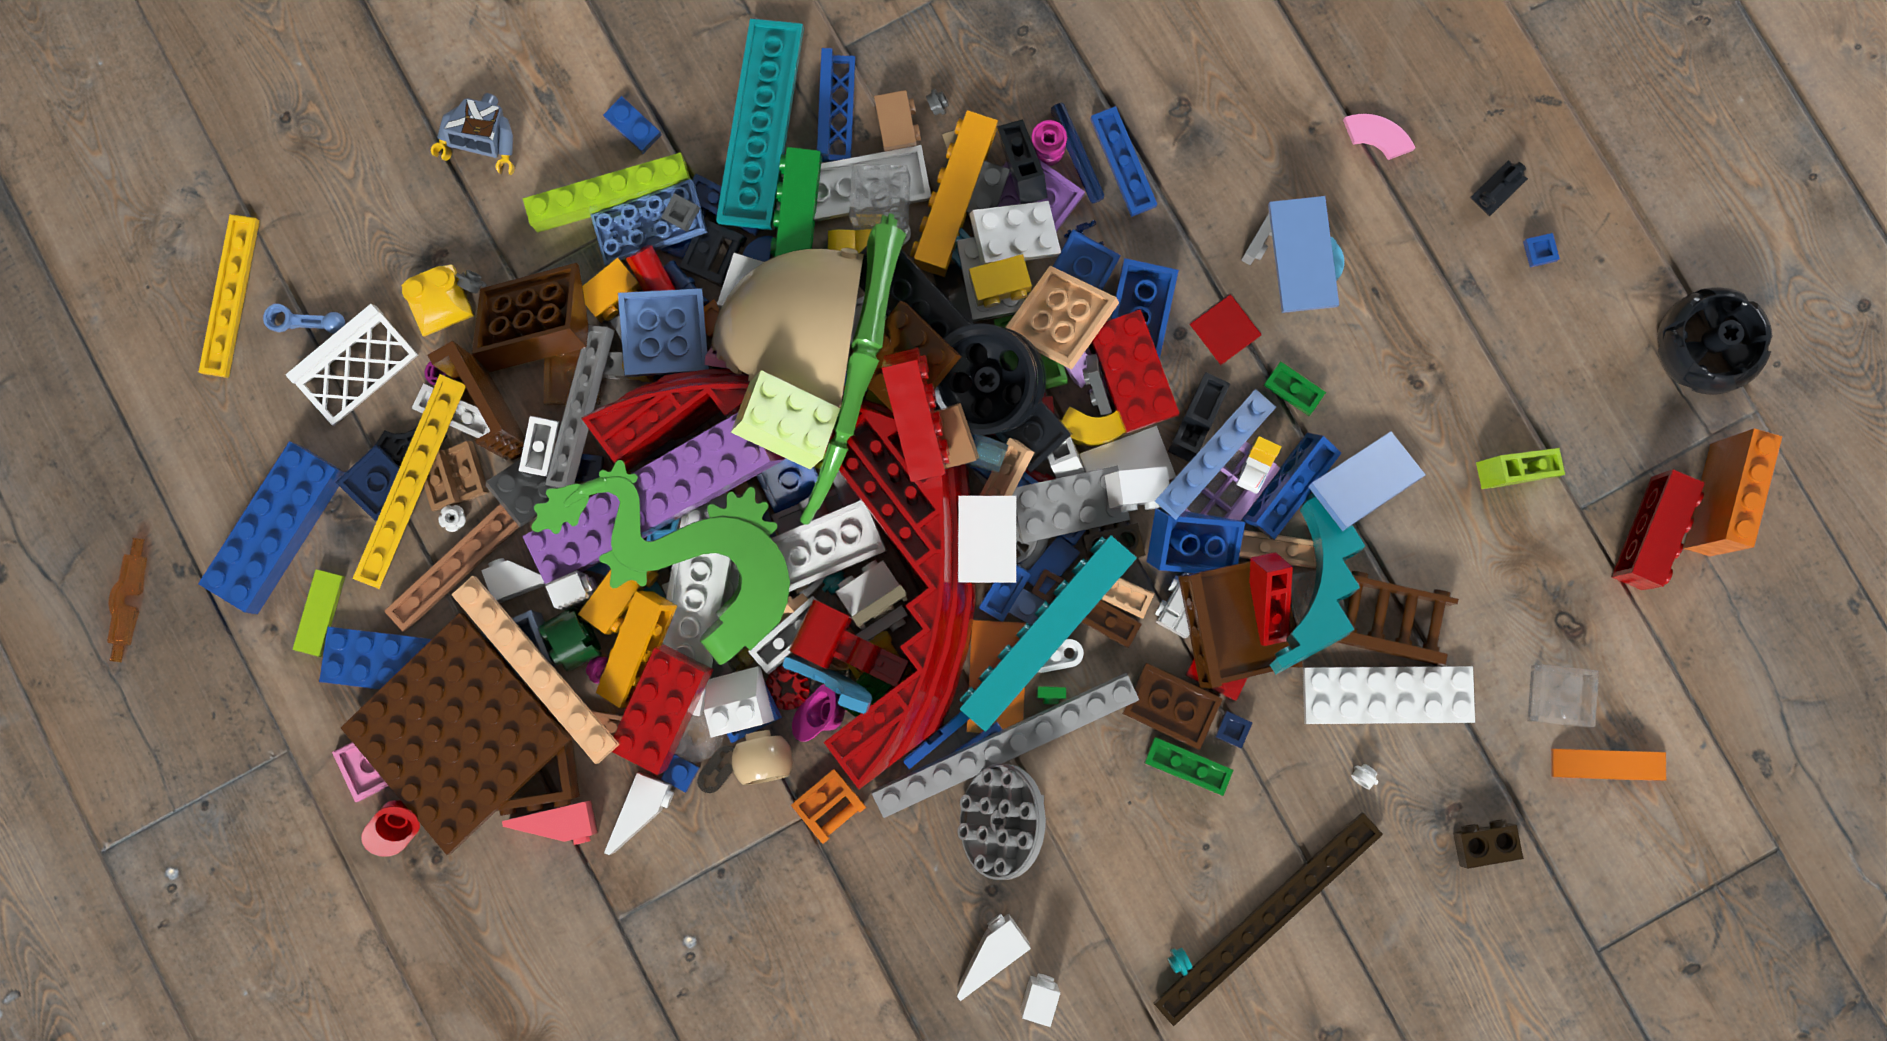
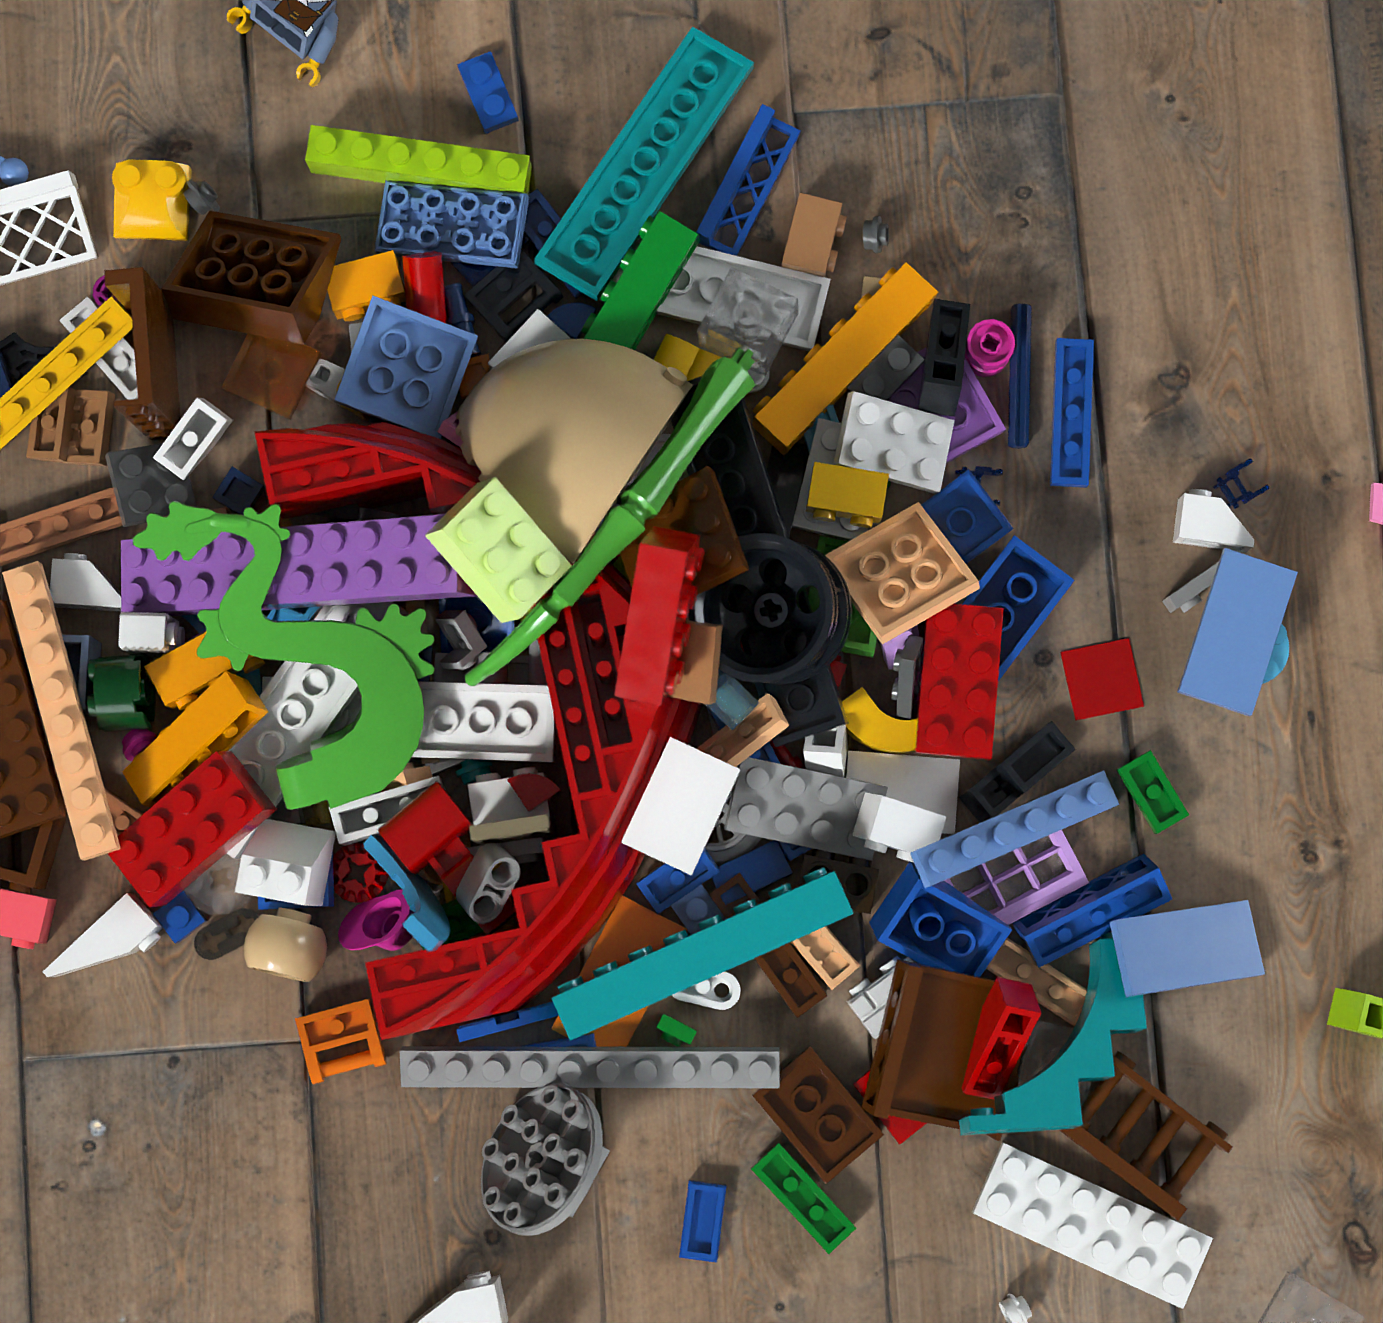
camera: 20 degrees right, 0 degrees up
(459, 518) = (56, 480): white plate -> none
(579, 403) = (262, 413): light grey plate -> none
(680, 212) = (494, 230): dark grey plate -> none
(786, 495) = (464, 638): none -> light grey bracket
(880, 650) = (492, 885): none -> light grey beam
(881, 574) = (533, 789): none -> red tile
(1128, 813) = (702, 1221): none -> blue tile
(1233, 729) = (879, 1178): dark blue plate -> none
(1248, 193) = (1209, 523): none -> white slope
(1257, 464) = (1061, 866): leg -> none
(1264, 164) = (1233, 475): none -> clear blue piece

